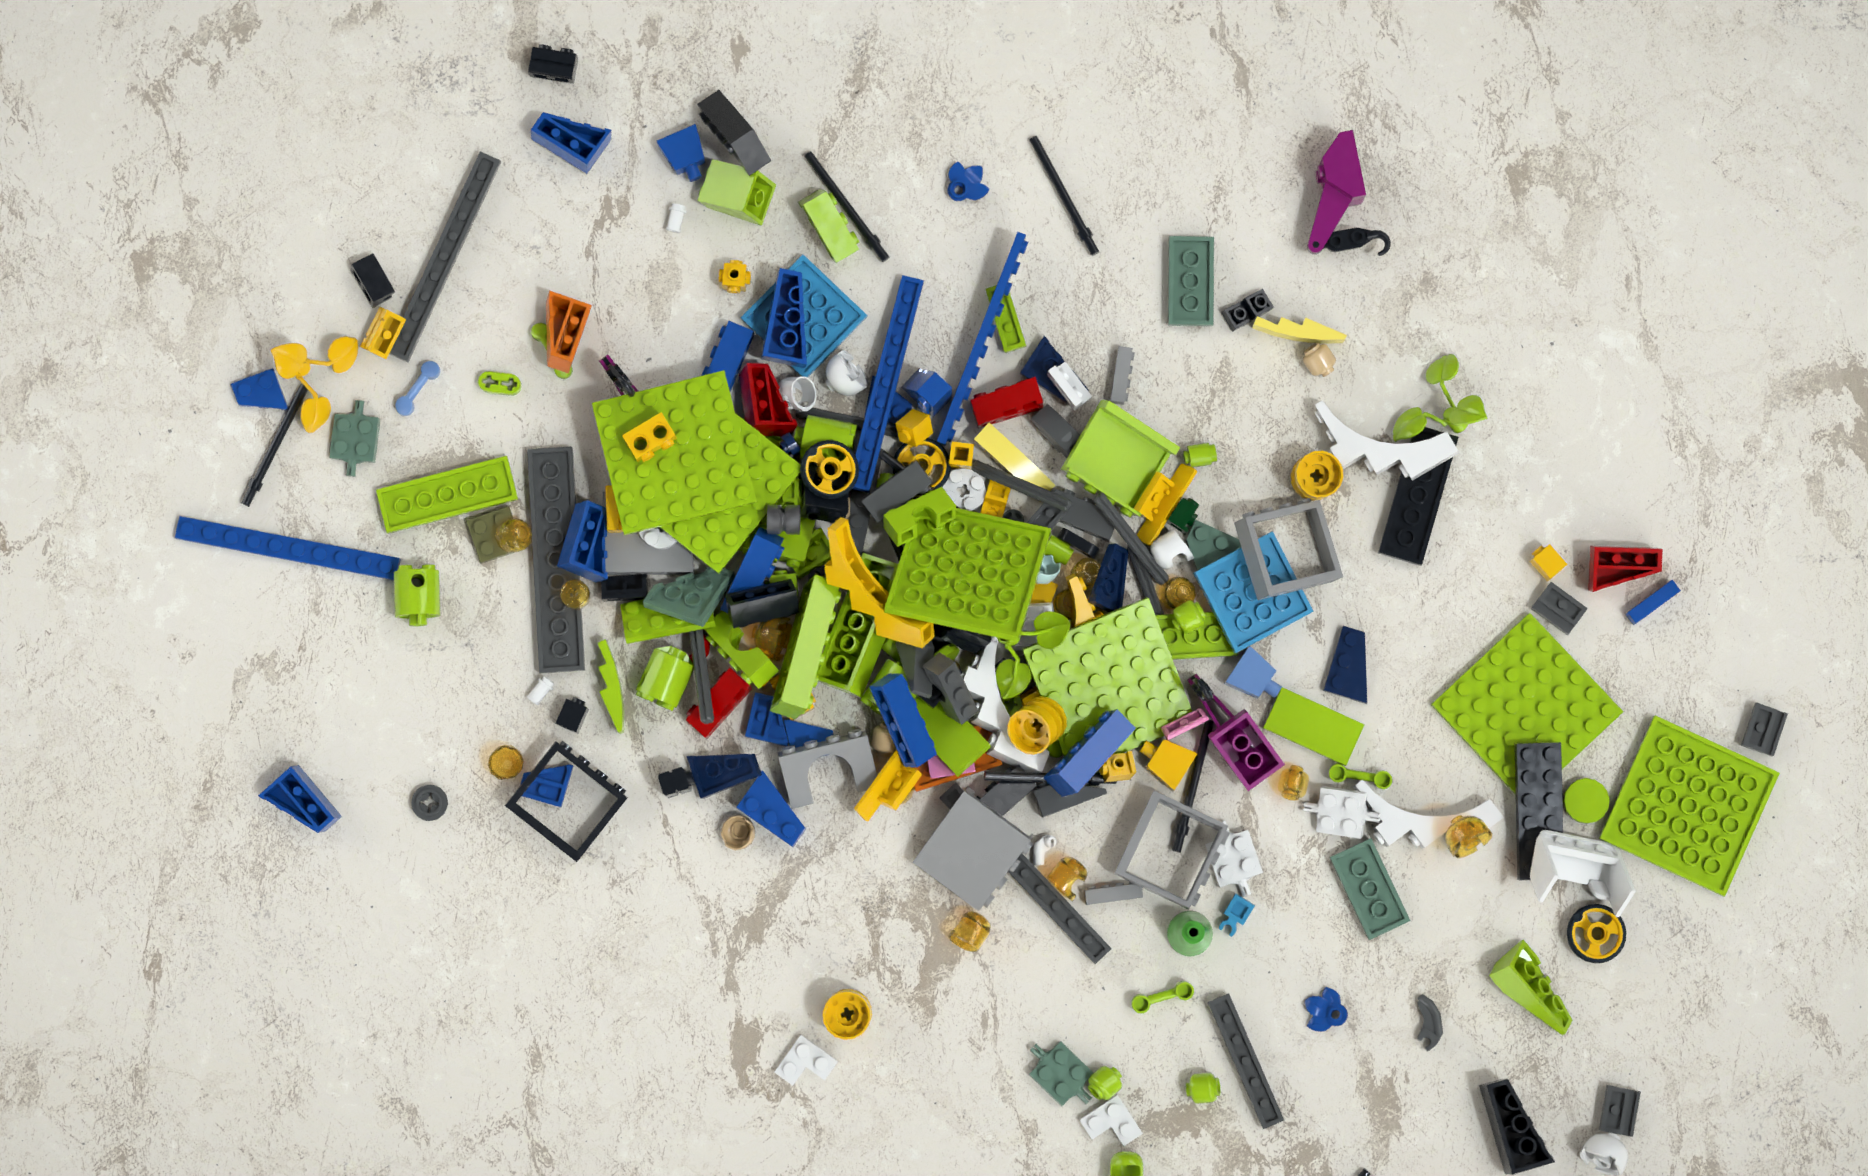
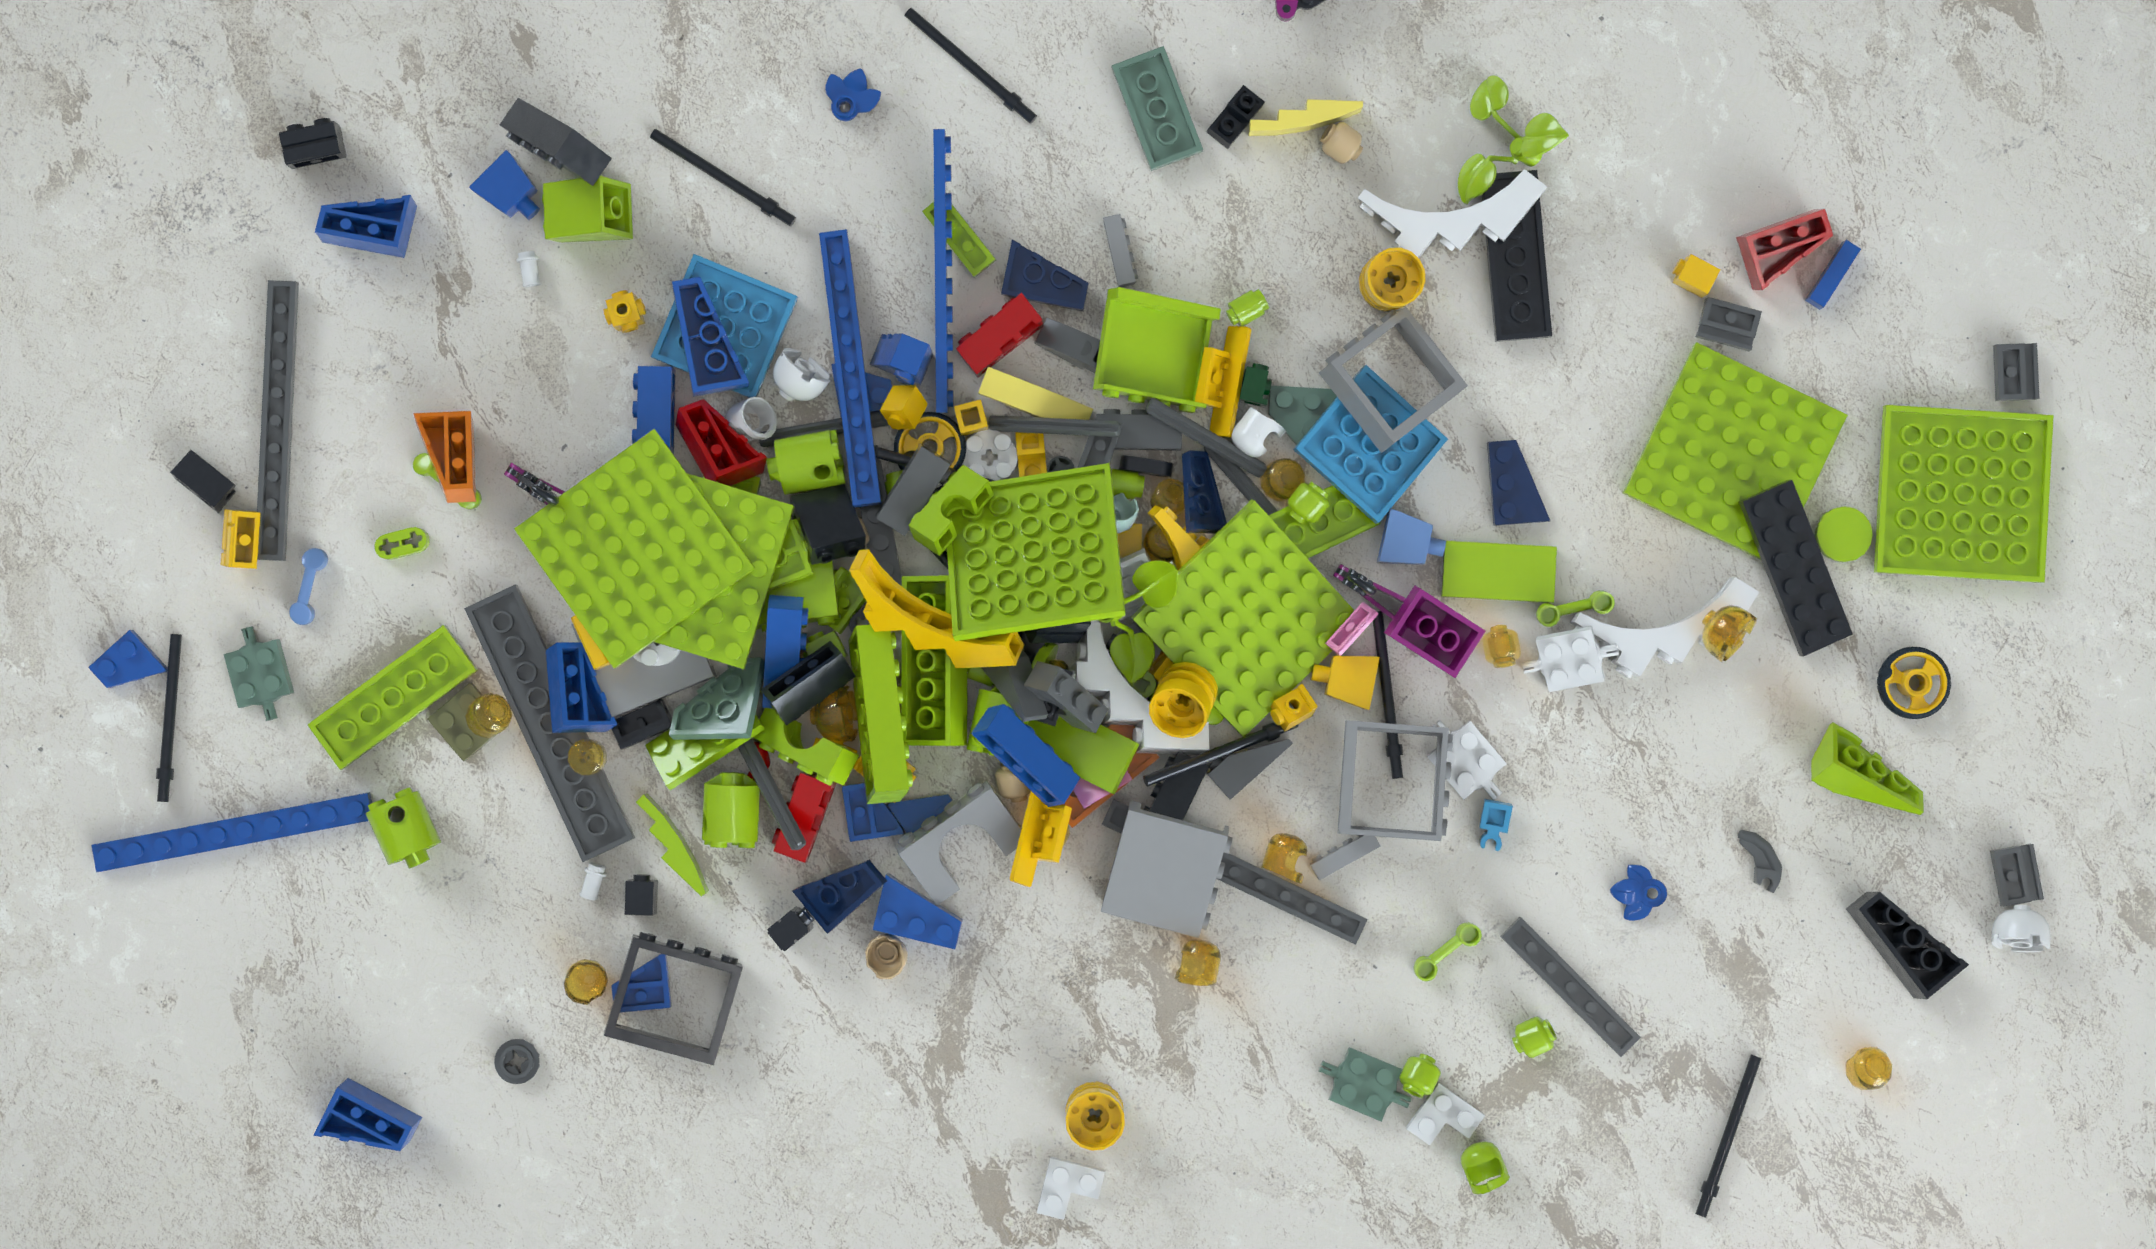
camera: 25 degrees left, 5 degrees up
(292, 361) = (143, 614): yellow plant -> none
(646, 432) = (591, 539): yellow brick -> none
(783, 519) = (794, 576): flat silver wheel -> none
(789, 445) = (766, 486): dark blue plate -> none
(815, 455) = (801, 486): yellow wheel -> none
(830, 224) = (711, 206): lime wedge -> none
(1042, 846) = (1241, 833): white arm -> none
(1069, 385) = (1064, 286): white bracket -> none
(1089, 753) = (1257, 708): wedge -> none
(1179, 935) = (1439, 862): bright green cone -> none
(1370, 889) = (1635, 733): sand green plate -> none
(1582, 862) = (1869, 606): white windscreen -> none

